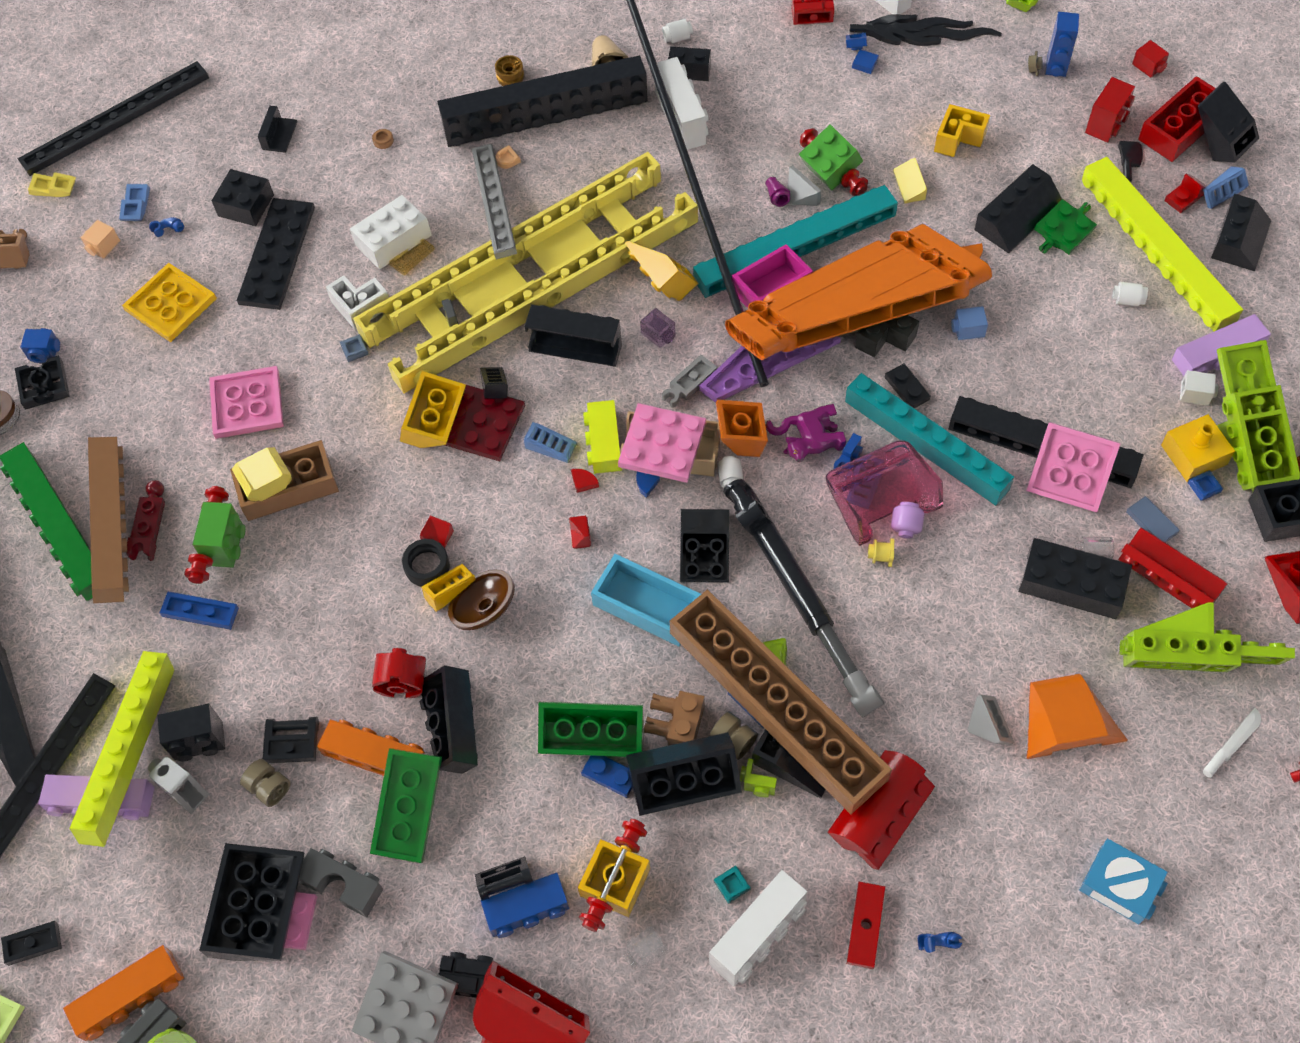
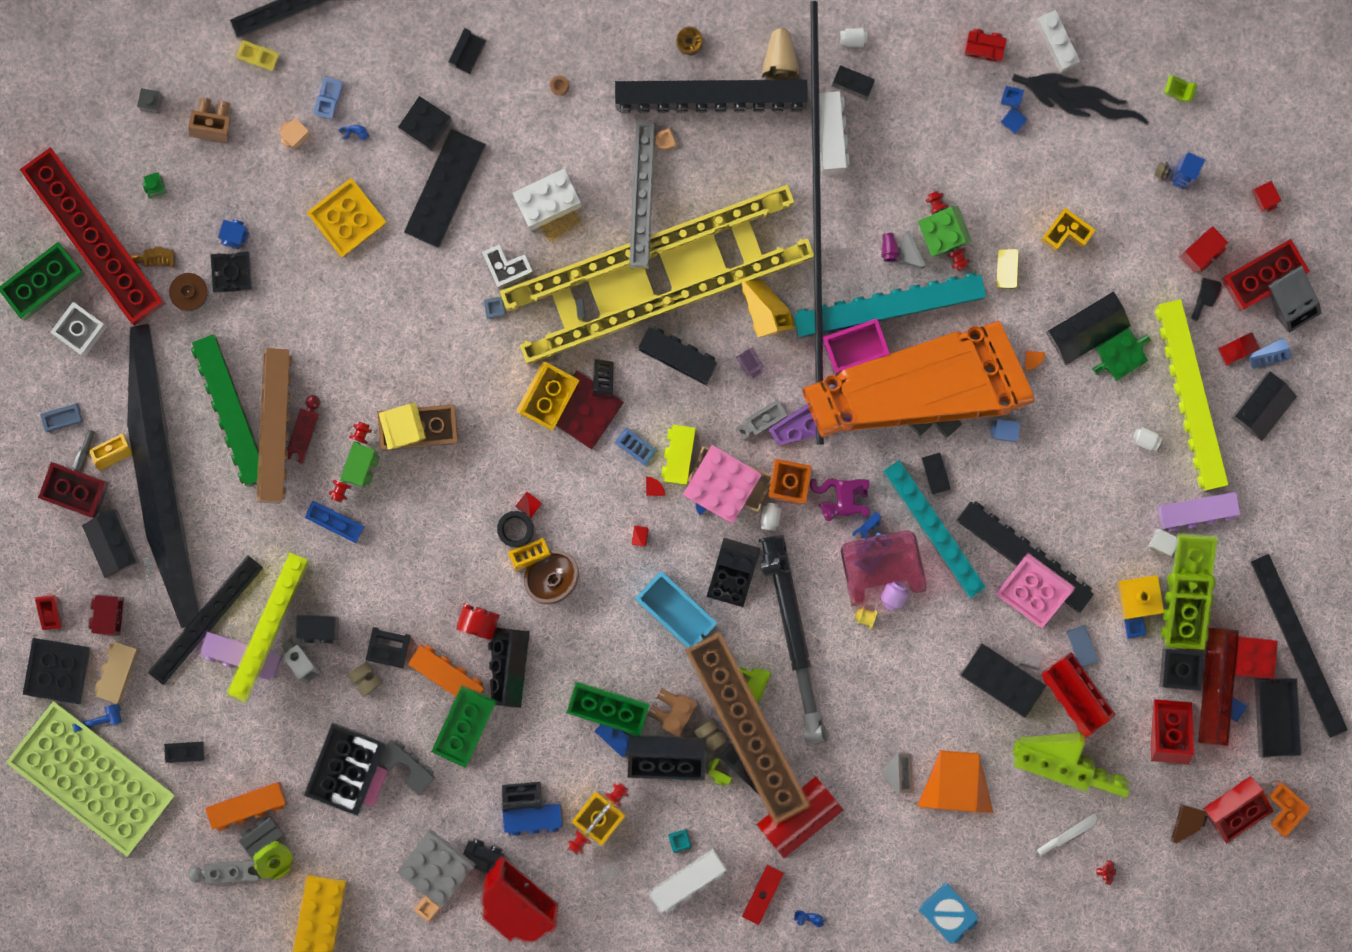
camera: 10 degrees right, 25 degrees up
(246, 402) = (397, 338): bright pink plate -> none

